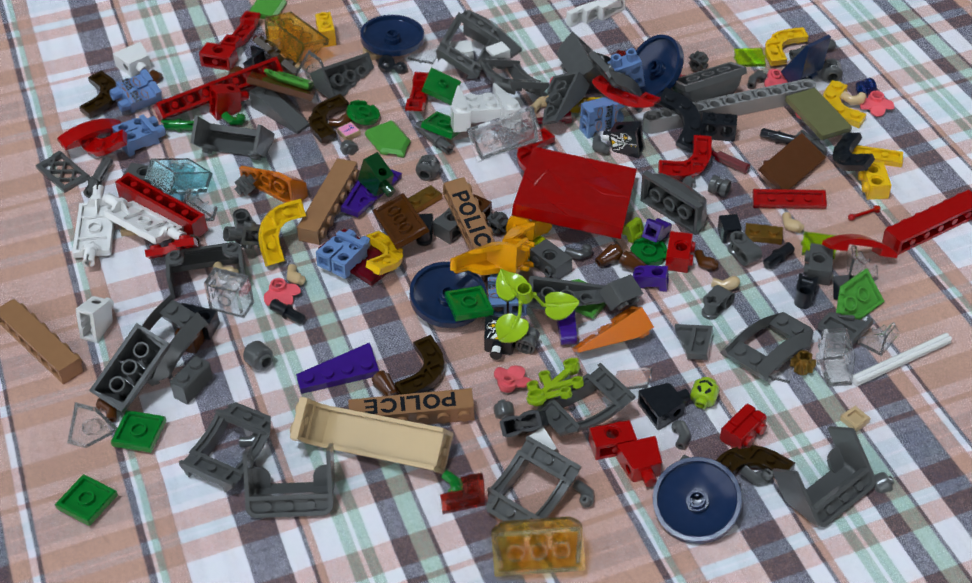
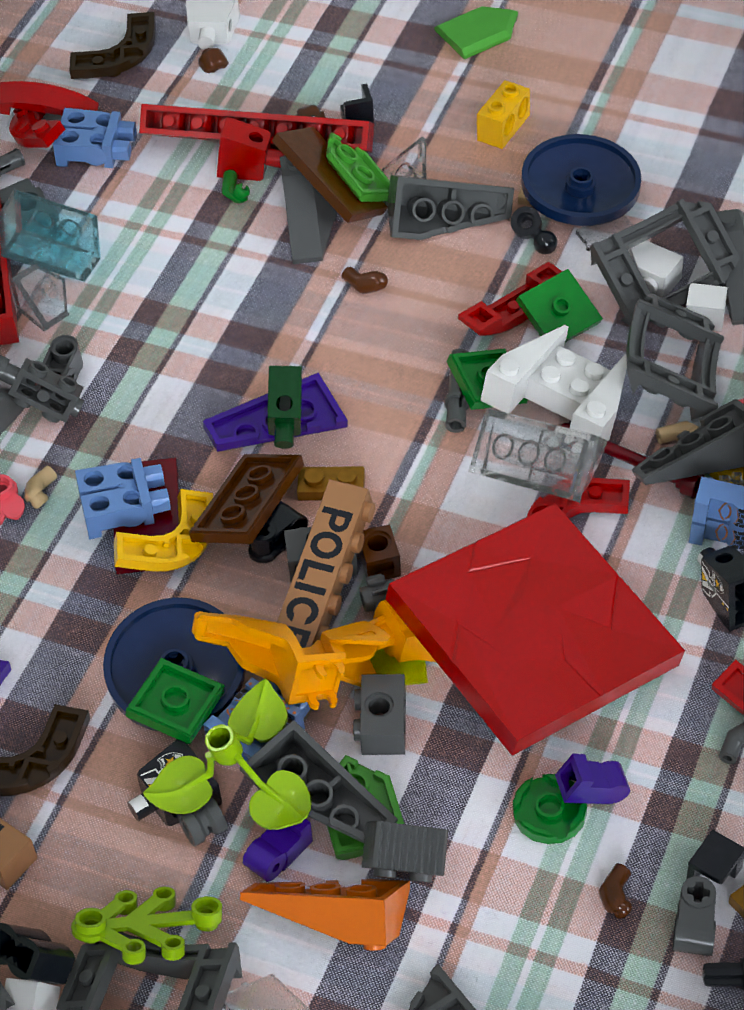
camera: 45 degrees right, 5 degrees up
(136, 92) = (153, 72): medium blue hips -> none
(178, 125) = (158, 155): green pin -> none
(218, 56) = (319, 75): red brick -> none
(231, 139) = (200, 226): dark grey windscreen -> none
(244, 31) = (395, 56): red slope -> none
(244, 184) = (127, 302): dark grey gear -> none
(271, 226) = (64, 390): yellow plate -> none
(274, 51) = (392, 133): dark brown plate -> none
(277, 184) = (171, 334): orange wedge -> none
(293, 36) = (440, 99): clear yellow windscreen -> none
(320, 115) = (352, 249): dark brown plate -> none
(328, 201) = (189, 402): medium nougat brick -> none
(348, 131) = (357, 303): tile -> none
(348, 147) = (331, 330): dark grey piece -> none
(362, 113) = (403, 285): green tile -> none
(388, 139) = (398, 351): bright green tile -> none
(428, 167) = (391, 435): dark grey head -> none
(503, 409) = (58, 907): dark grey piece -> none
(511, 378) = (121, 863): coral plate -> none
(579, 254) = (444, 736): dark grey arm -> none
(599, 146) = (684, 566): dark grey arm -> none
(609, 255) = (478, 771): reddish brown cone -> none
(630, 261) = (497, 808): reddish brown cone -> none
(633, 229) = (558, 750): lime tile -> none
(652, 276) = (495, 857): dark purple leg -> none
(674, 200) = (682, 754): dark grey windscreen -> none
(679, 250) = (594, 827): red brick -> none
(716, 302) = (546, 975): dark grey piece -> none
(729, 283) = (601, 960): tan arm -> none

